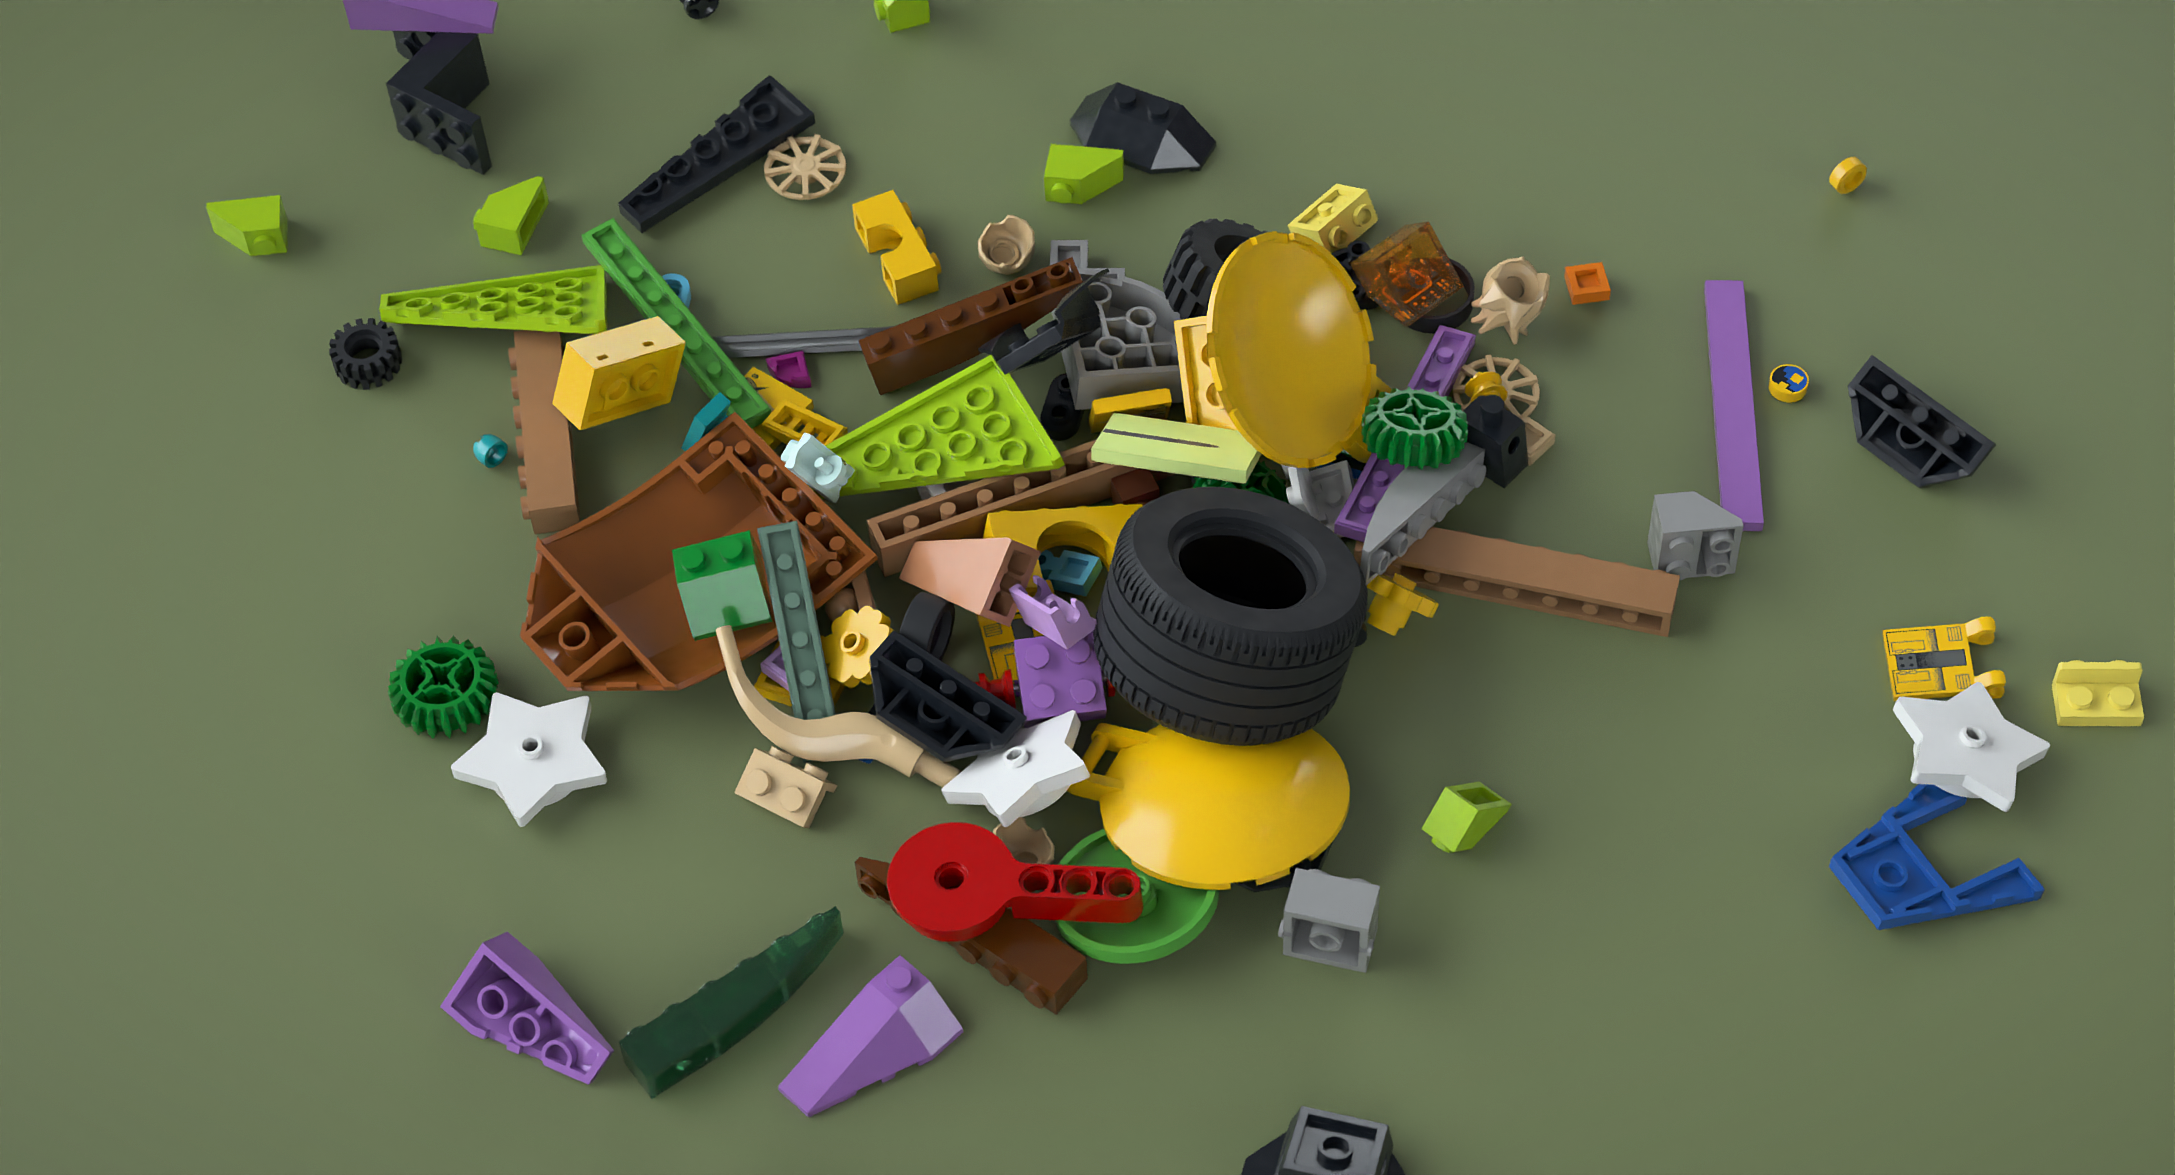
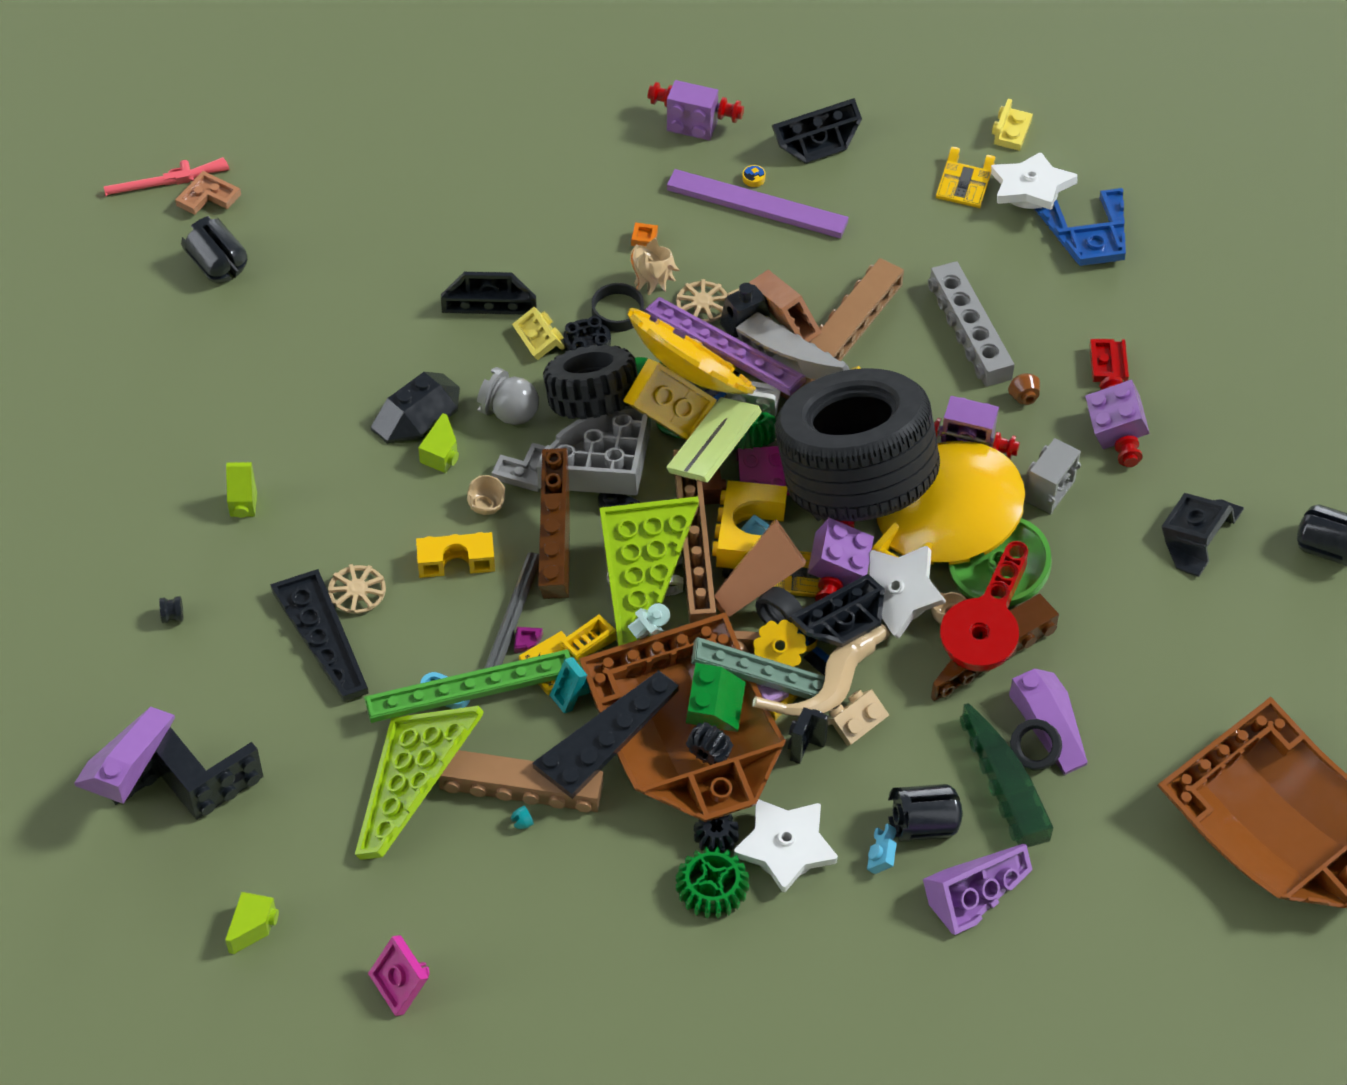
camera: 75 degrees left, 0 degrees up
(203, 390) = (398, 975): none -> dark pink tile
(360, 338) = (408, 887): black tyre -> none
(511, 216) = (324, 762): lime slope -> none
(522, 672) = (717, 832): none -> black gear
(547, 874) = (883, 852): none -> medium azure plate
(601, 900) = (925, 812): none -> black cylinder
(606, 476) = (588, 749): none -> black wing
(618, 372) = (513, 717): yellow piece -> none
(641, 601) = (709, 744): none -> black gear
(713, 719) = (808, 729): none -> black bracket
(782, 1010) = (1043, 725): none -> black tyre
(1052, 615) = (818, 530): lavender hinge -> none
(1076, 318) = (612, 475): black piece -> none
(1145, 404) = (654, 466): yellow tile -> none
(1179, 201) = (511, 398): none -> light grey tile
(1373, 138) = (488, 294): none -> black wedge
(1381, 782) = (975, 423): none -> medium lavender brick
(1408, 273) = (606, 304): clear orange slope -> none
(1414, 428) = (740, 331): green gear -> none
(1464, 816) = (1002, 397): lime slope -> none
(1485, 384) = (712, 300): yellow wheel -> none
(1504, 989) = (1118, 418): none -> medium lavender brick
(1507, 477) = (787, 305): none -> nougat slope
(1511, 848) = (1025, 388): none -> dark orange cone
(1545, 804) = (971, 324): none -> light grey brick
(1636, 956) = (1108, 359): none -> red plate
(1693, 536) = (854, 245): light grey slope -> none
(1848, 175) = (621, 99): yellow tile -> none
(1865, 260) = (693, 108): none -> medium lavender brick

